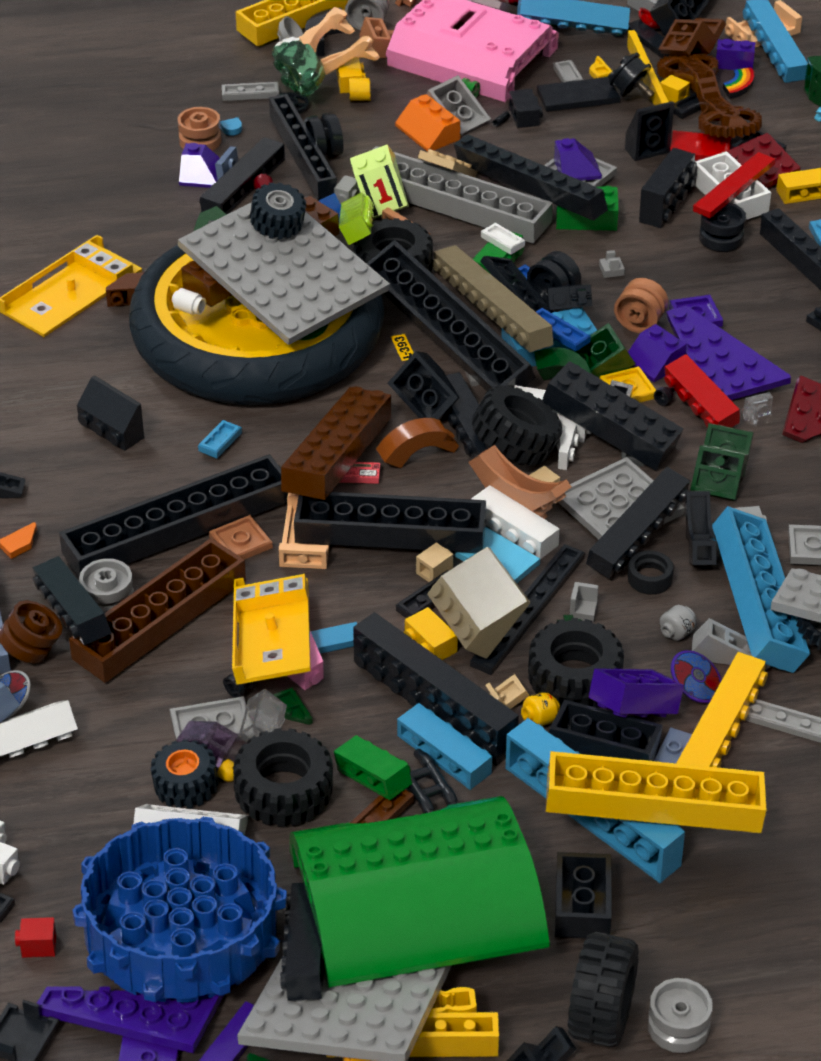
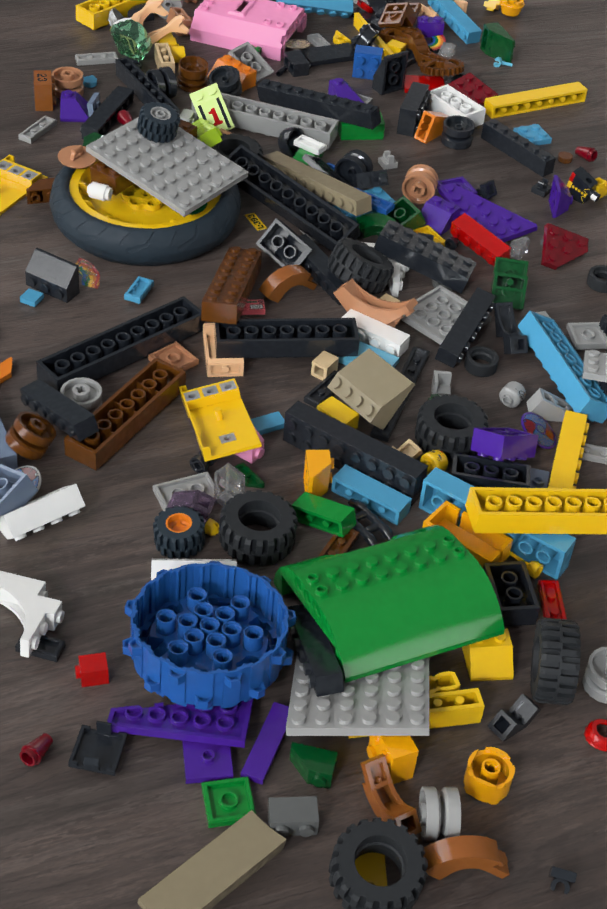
camera: 15 degrees left, 0 degrees up
(80, 441) = (31, 297): none -> dark azure tile
(145, 197) = (37, 129): none -> light grey tile
(161, 409) = (89, 273): none -> clear tile
(163, 141) = (44, 90): none -> dark orange brick
(165, 249) = (76, 157): none -> nougat shield
(339, 97) = (163, 56): none -> tan brick
(371, 122) = (192, 73): none -> reddish brown wheel
(378, 711) = (317, 471): none -> light orange slope
(412, 134) = (227, 80): none -> black wheel
(447, 162) = (257, 96): tan plate -> none
(473, 226) = (286, 140): none -> black cylinder
(533, 77) = (297, 44): none -> clear dish
(534, 976) = (490, 658): none -> yellow slope
(544, 829) = (483, 546): none -> light orange piece
(619, 108) = (366, 61): none -> blue brick
(629, 864) = (534, 567): none -> yellow hinge
(641, 921) = (551, 599): none -> red tile
(681, 218) = (430, 126): none -> orange slope
(733, 185) = (460, 104): red tile -> none
(740, 316) = (487, 189): none -> black tile
(749, 94) = (447, 50): none -> clear bracket

